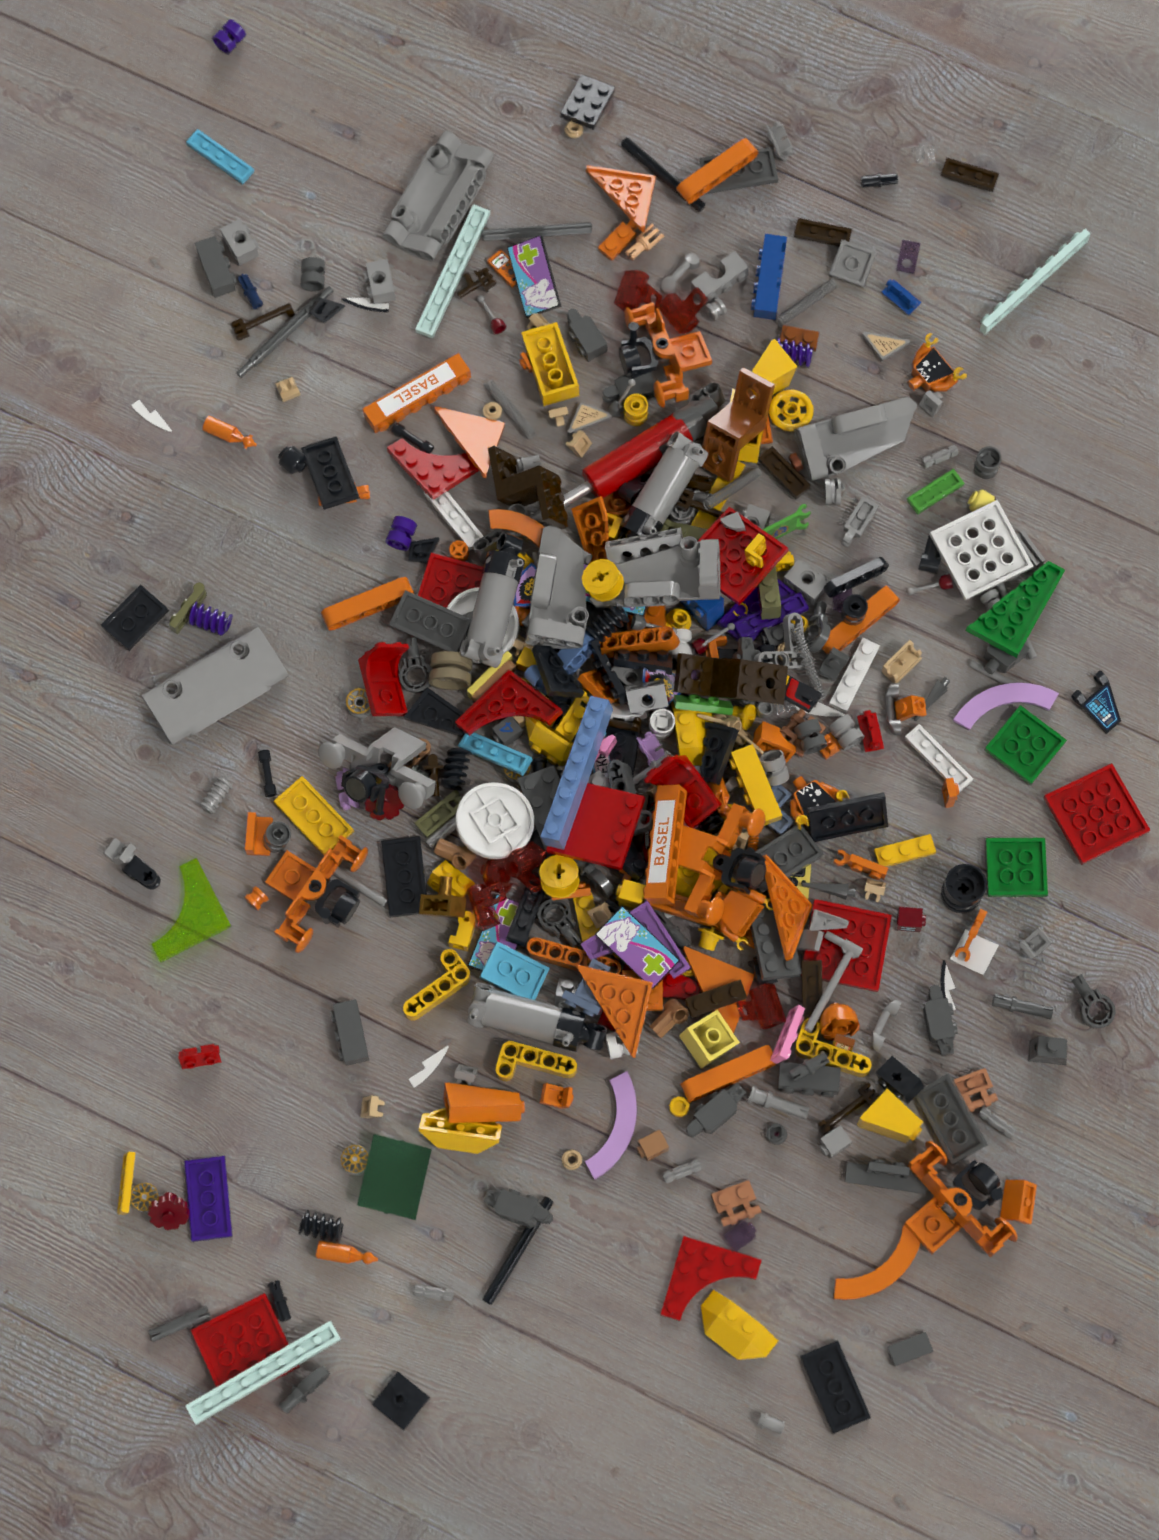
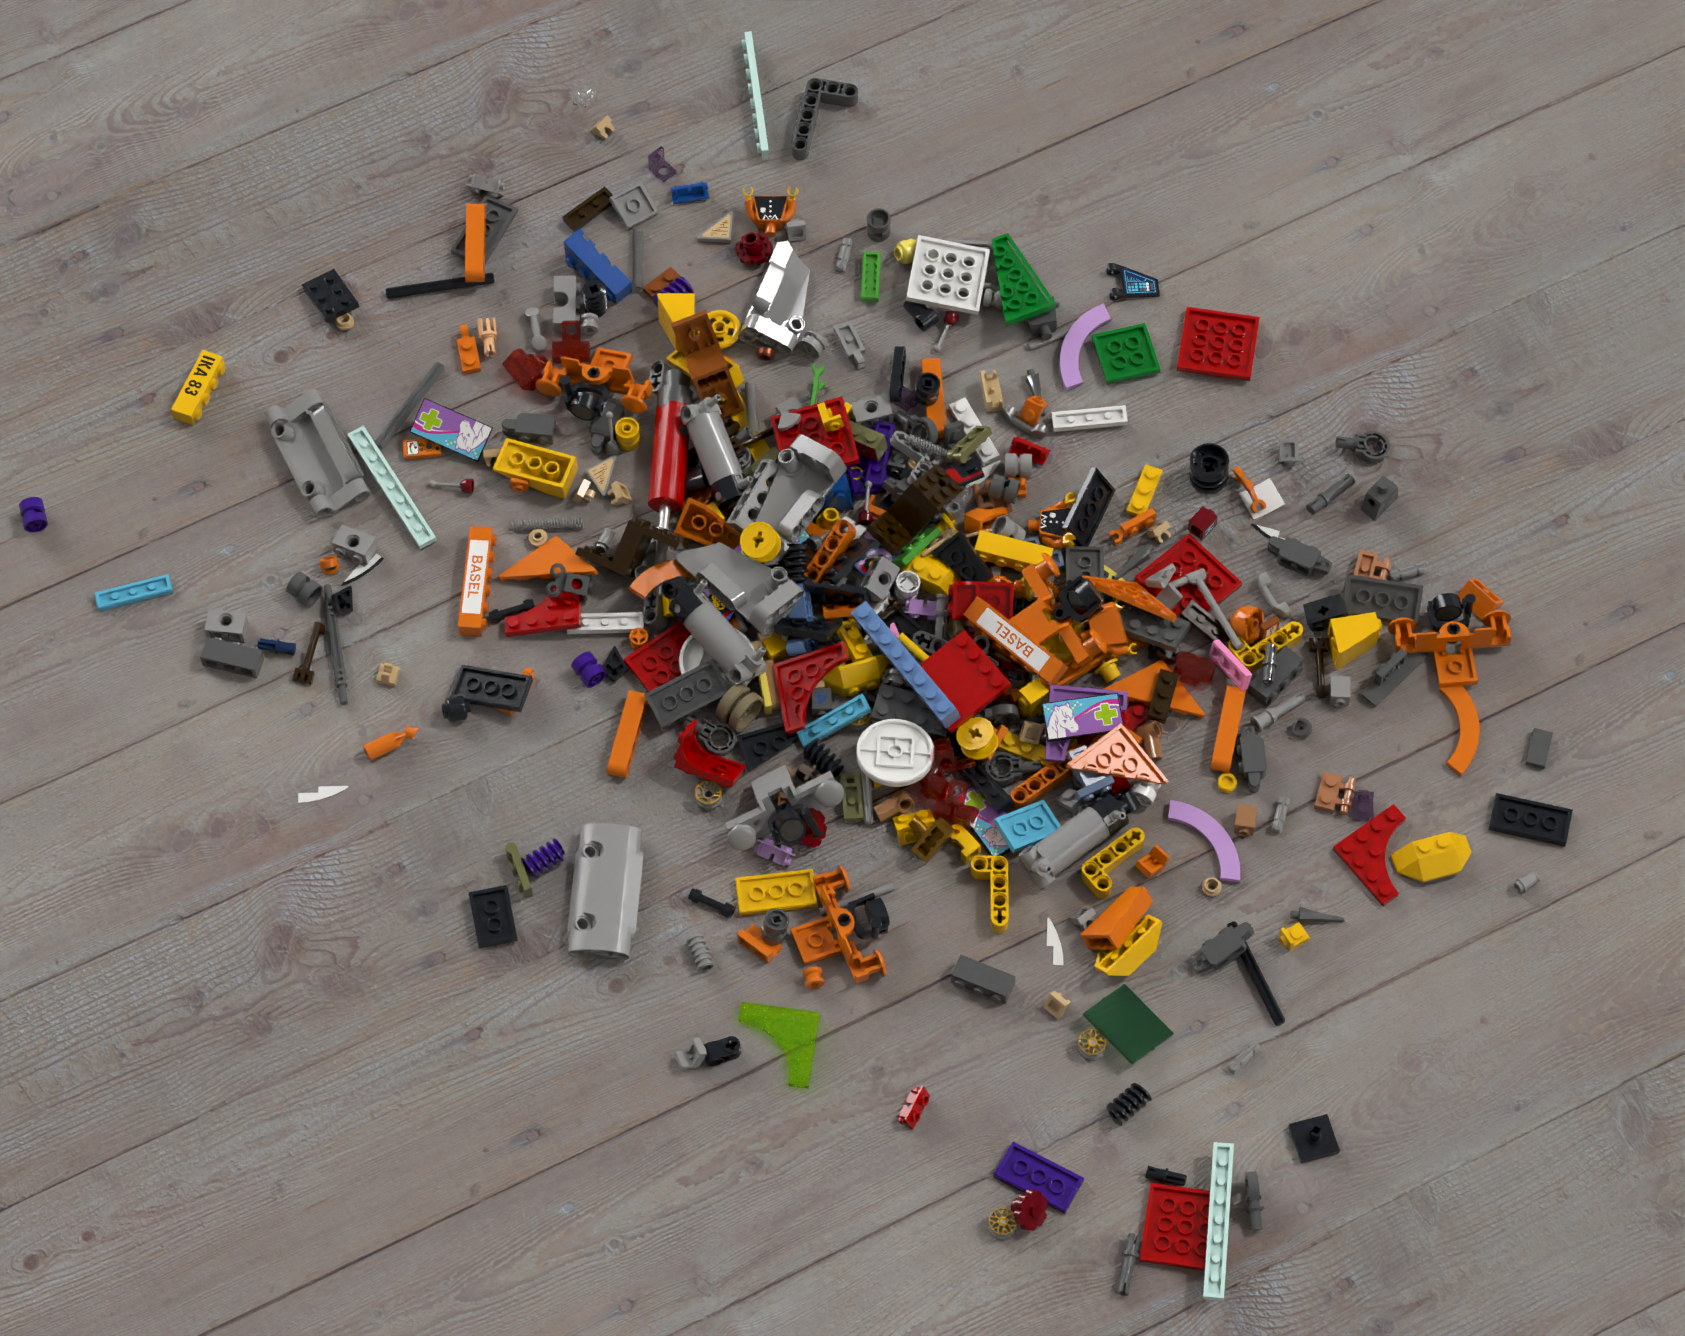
camera: 55 degrees left, 10 degrees down
(126, 1183) = (979, 1229): yellow tile -> none
(342, 1253) = (1161, 1103): orange wheel -> none
(350, 274) = (327, 562): none -> orange tile
(403, 875) = (881, 857): black tile -> none
(430, 69) = (198, 387): none -> yellow brick
(458, 457) = (564, 581): none -> dark grey piece
(473, 285) = (419, 473): dark brown arm -> none
(574, 1258) = (1293, 936): none -> yellow bracket
(602, 767) = (912, 647): none -> yellow piece
(602, 1257) = (1309, 916): none -> dark grey piece
(628, 190) = (432, 317): orange tile -> none
(709, 1039) = (1190, 723): light yellow slope -> none
(738, 295) = (595, 297): none -> black piece
(784, 472) = (768, 368): dark brown plate -> none
(830, 679) = (968, 444): none -> olive plate
(878, 180) = (578, 142): black axle -> none
(887, 383) = (754, 248): none -> dark red plant
(910, 185) = (602, 124): none -> tan tile
(950, 791) = (1125, 426): orange plate -> none
(969, 174) = (628, 79): dark brown plate -> none
(1016, 867) = (1218, 422): green plate -> none
(1057, 336) = (809, 113): none -> dark grey beam

